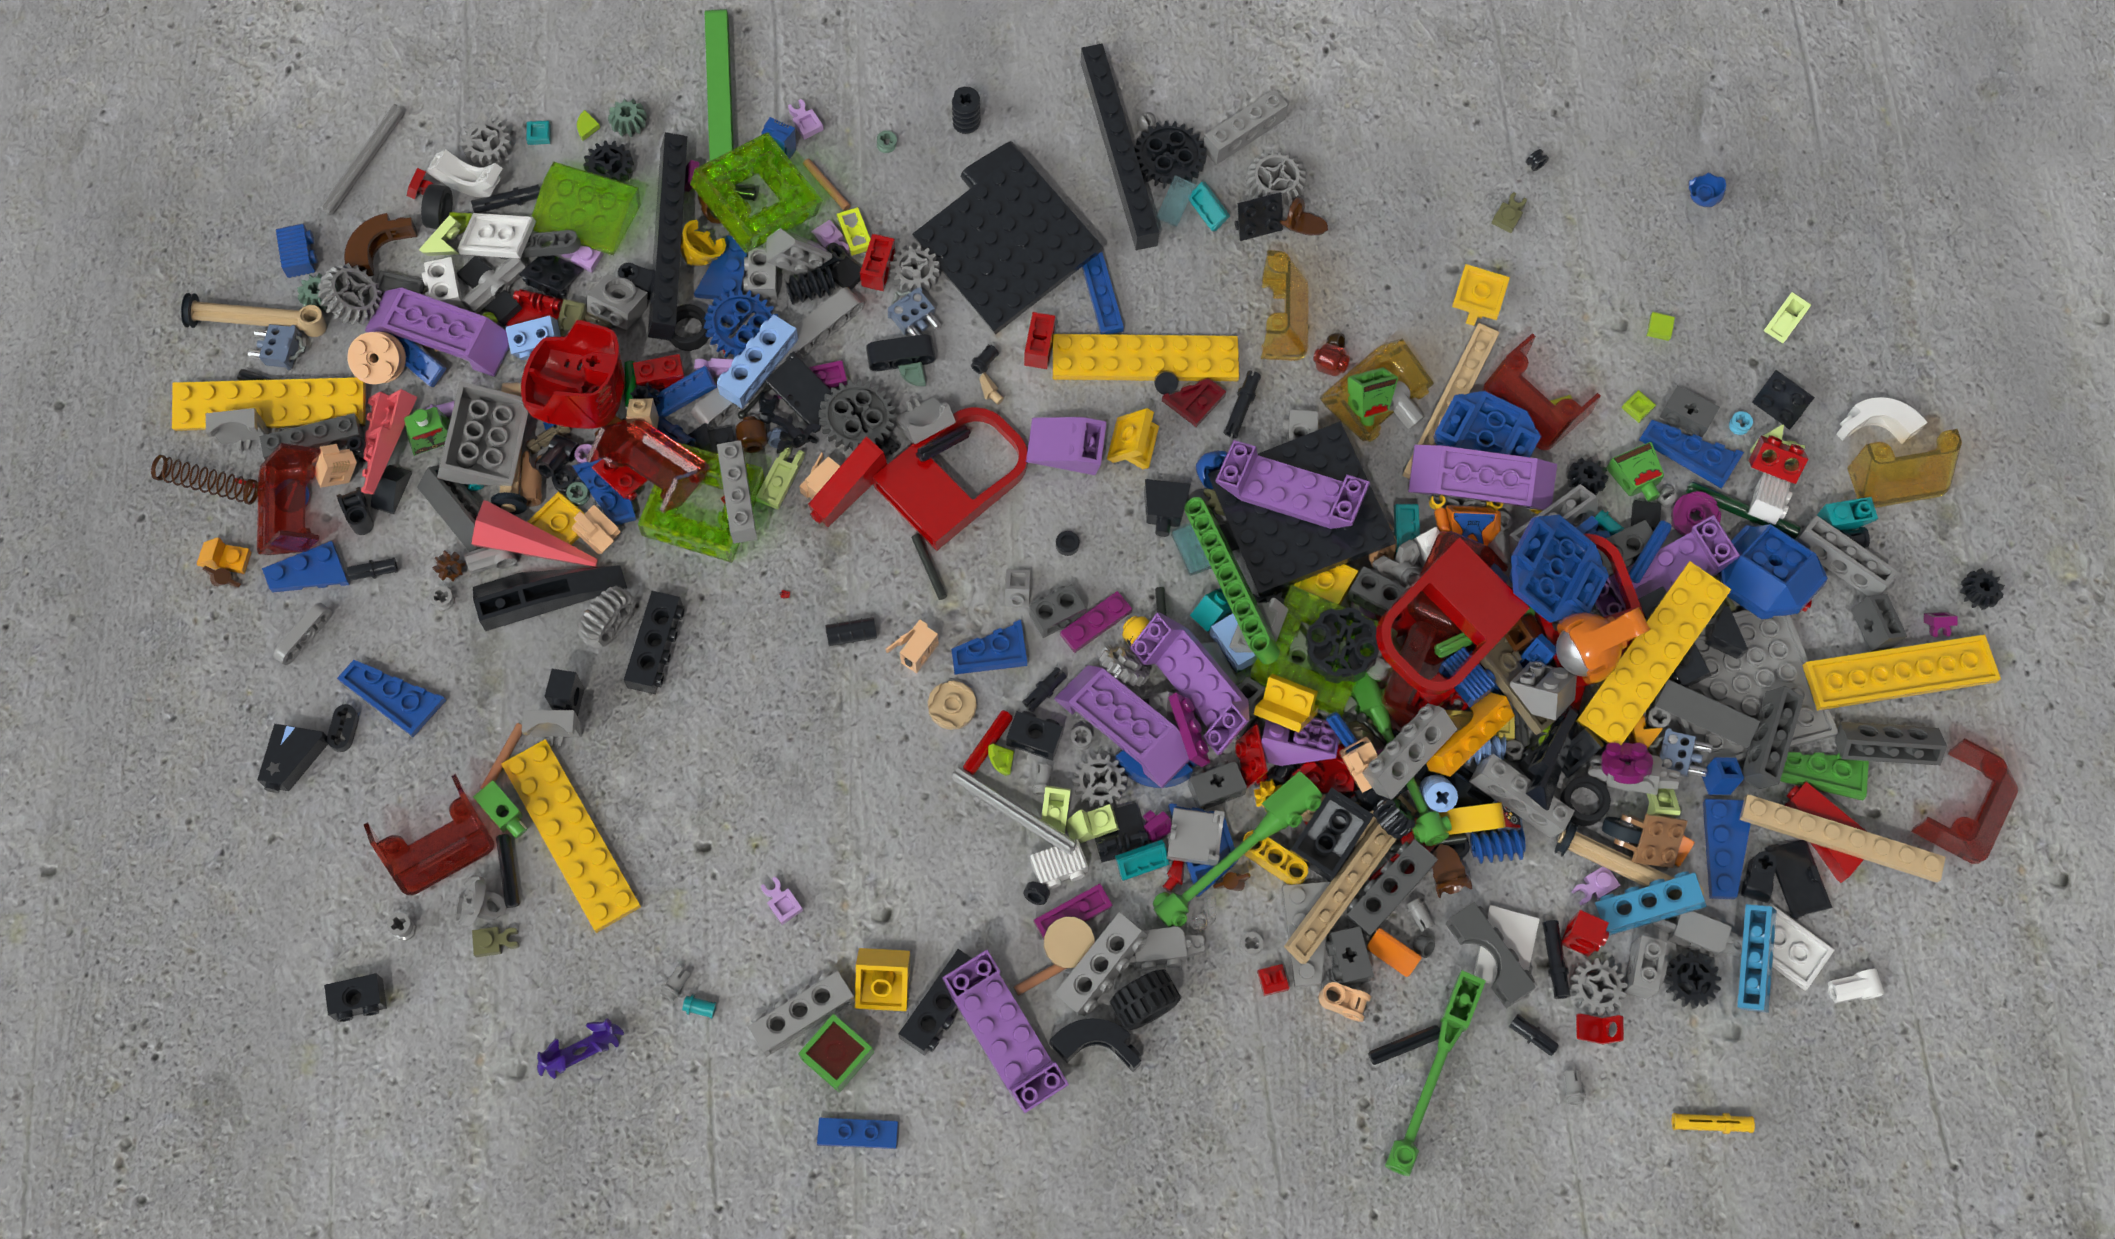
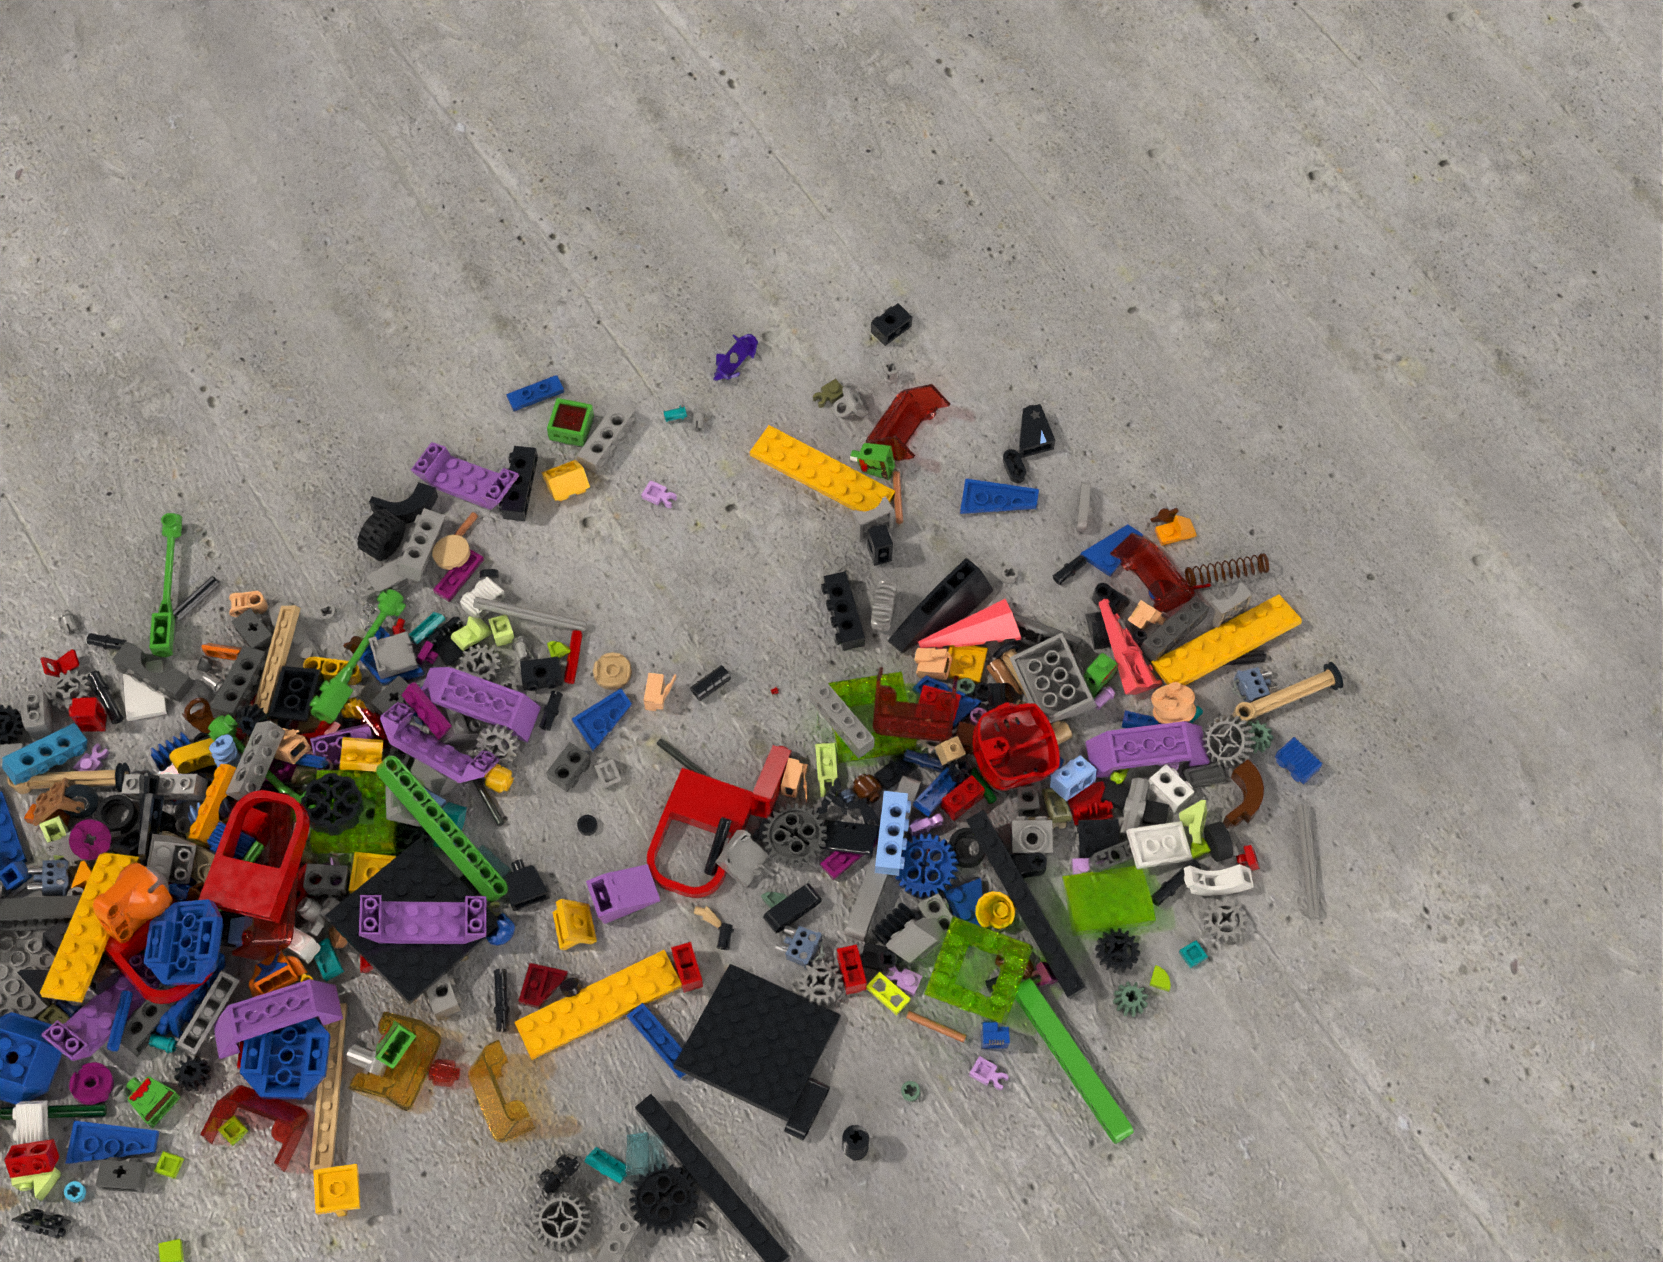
camera: 155 degrees right, 5 degrees down
(442, 566) = (1018, 592): reddish brown gear -> none
(507, 870) = (845, 432): black axle -> none
(1096, 621) = (535, 778): magenta plate -> none
(1273, 980) = (302, 597): red tile -> none
(1304, 222) = (518, 1192): reddish brown piece -> none
(1336, 339) = (446, 1093): dark brown hinge -> none
(1646, 511) = (134, 1066): black piece -> none

